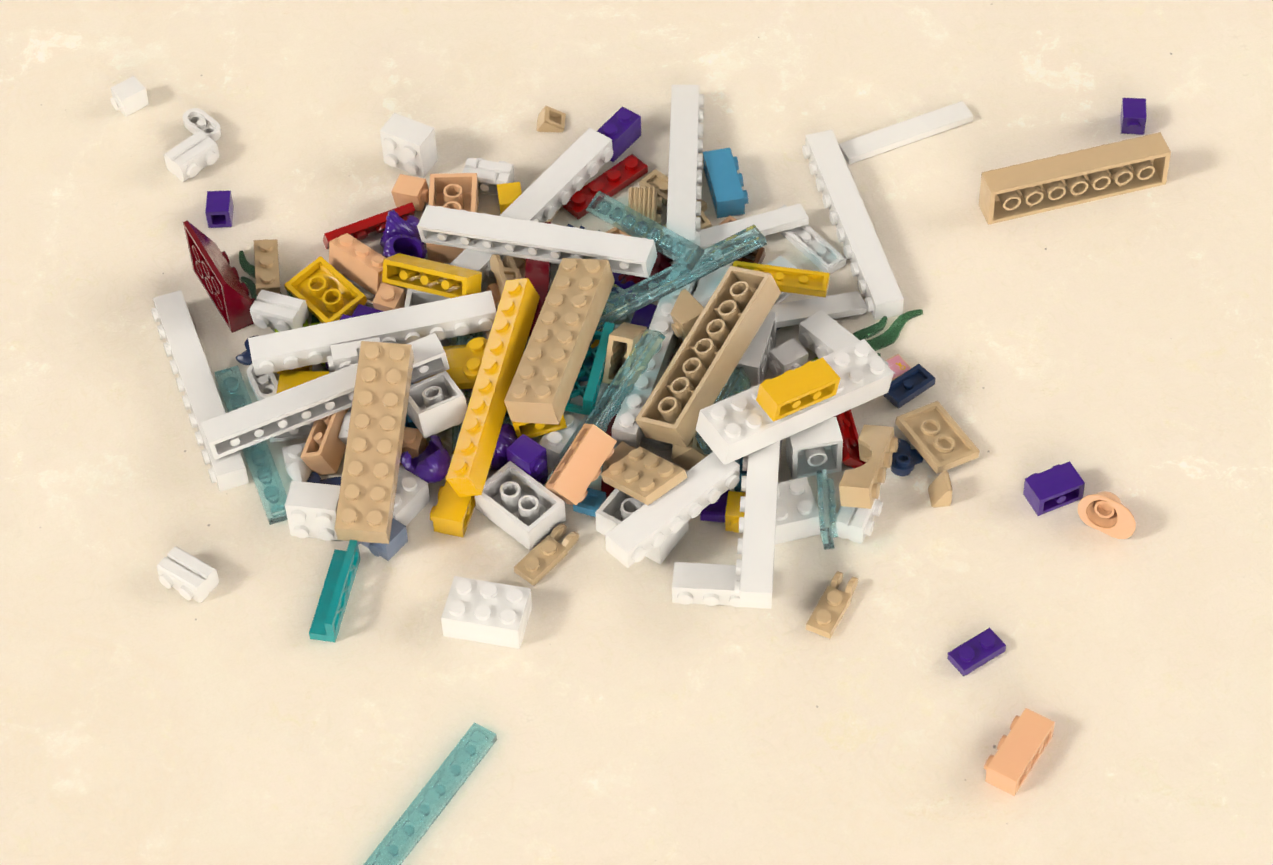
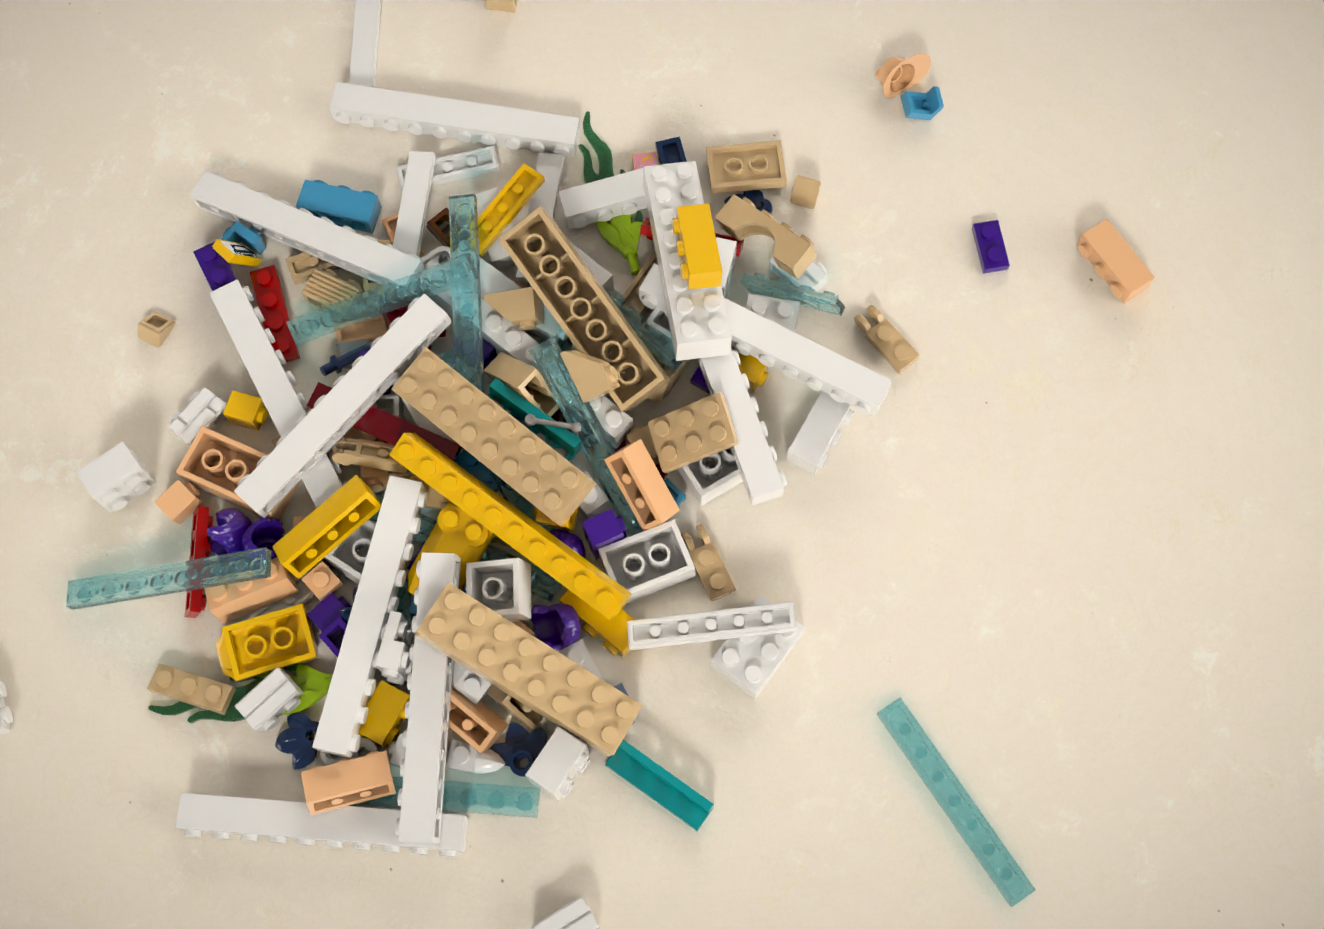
camera: 65 degrees left, 20 degrees up
(219, 209) = (80, 707): dark purple brick -> none
(219, 279) = (191, 744): dark red slope -> none
(232, 378) = (348, 782): none -> light nougat brick
(343, 208) = (169, 578): none -> clear light blue plate
(483, 562) = (711, 625): none -> white tile
(589, 360) = (530, 420): none -> light grey hinge
(639, 134) = (236, 253): none -> yellow tile
(648, 378) = (590, 375): none -> tan slope
(658, 133) = (250, 237): none -> dark azure bracket
(787, 357) = (591, 244): white brick -> none
(1053, 488) = (849, 102): dark purple brick -> none
(1087, 542) = (922, 105): none -> dark azure bracket

